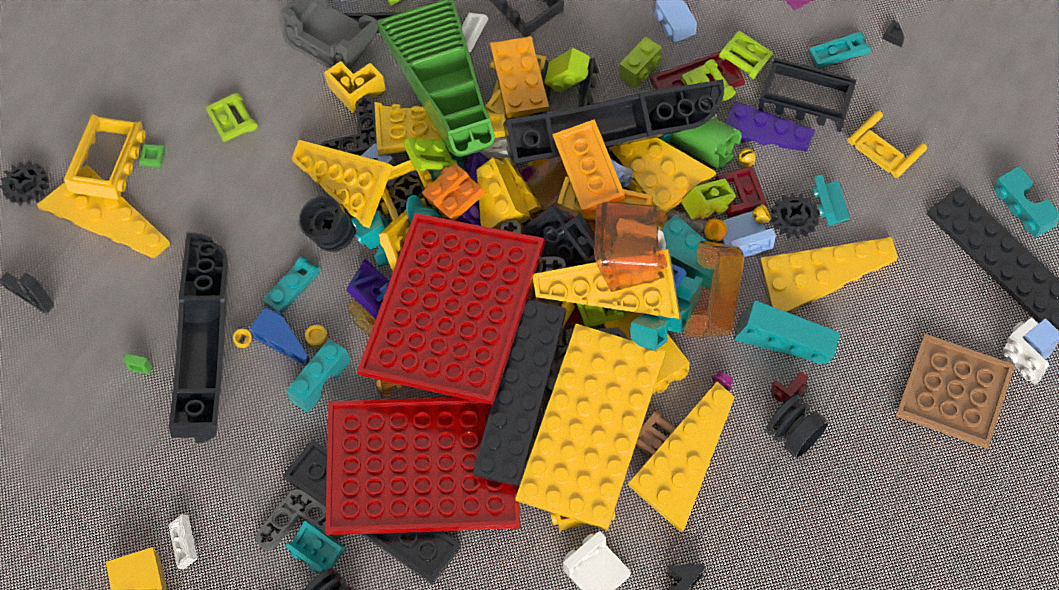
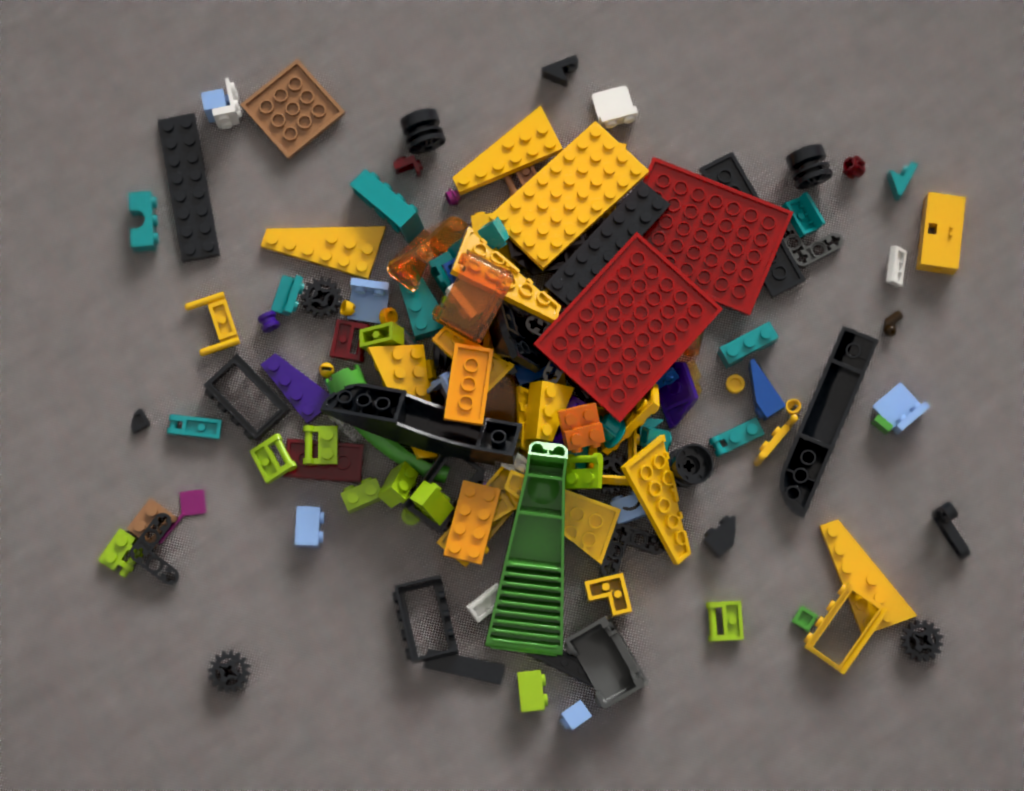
camera: 160 degrees left, 15 degrees up
(121, 388) = (900, 408): none -> light blue bracket
(167, 475) = (889, 323): none -> dark brown arm
(252, 286) = (778, 434): none -> yellow plate
(266, 183) = (721, 538): none -> black slope
(610, 78) = (398, 485): none -> lime brick
(833, 169) = (268, 321): none -> dark purple wheel

